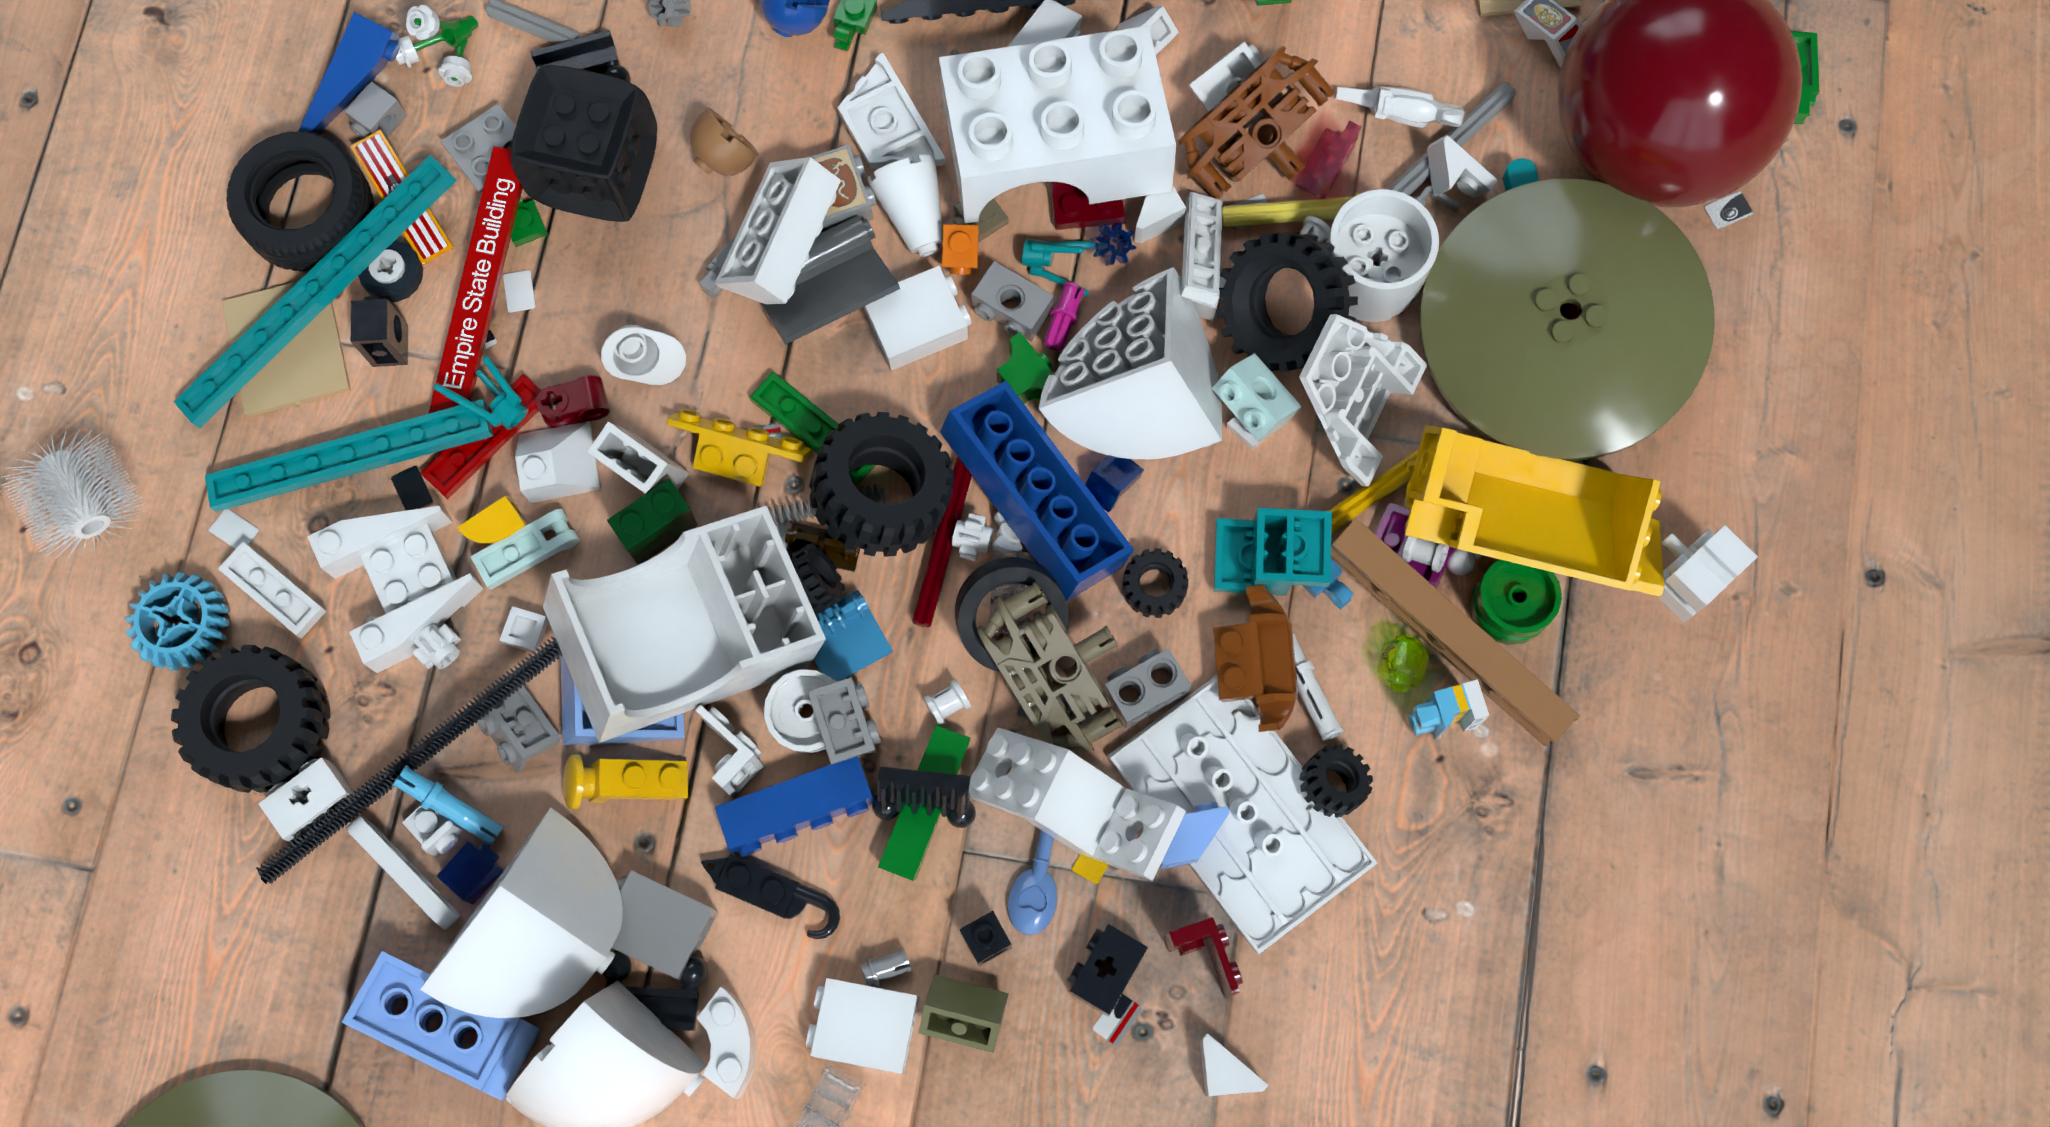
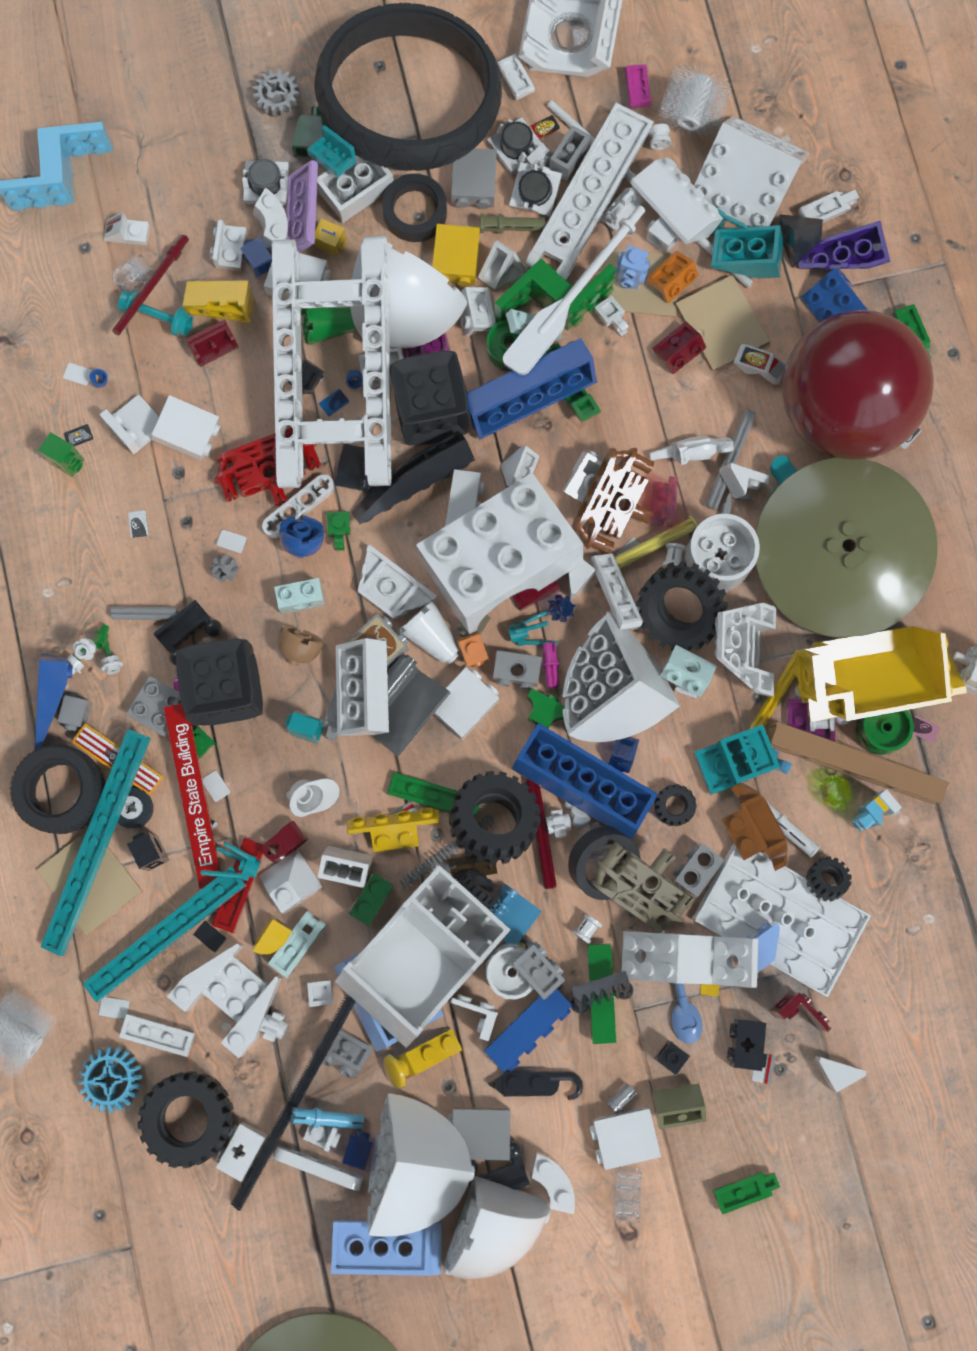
camera: 25 degrees left, 5 degrees up
(676, 255) = (304, 726): none -> teal brick
(754, 82) = (299, 596): none -> light aqua brick
(1576, 631) = (925, 729): none -> clear pink sticker

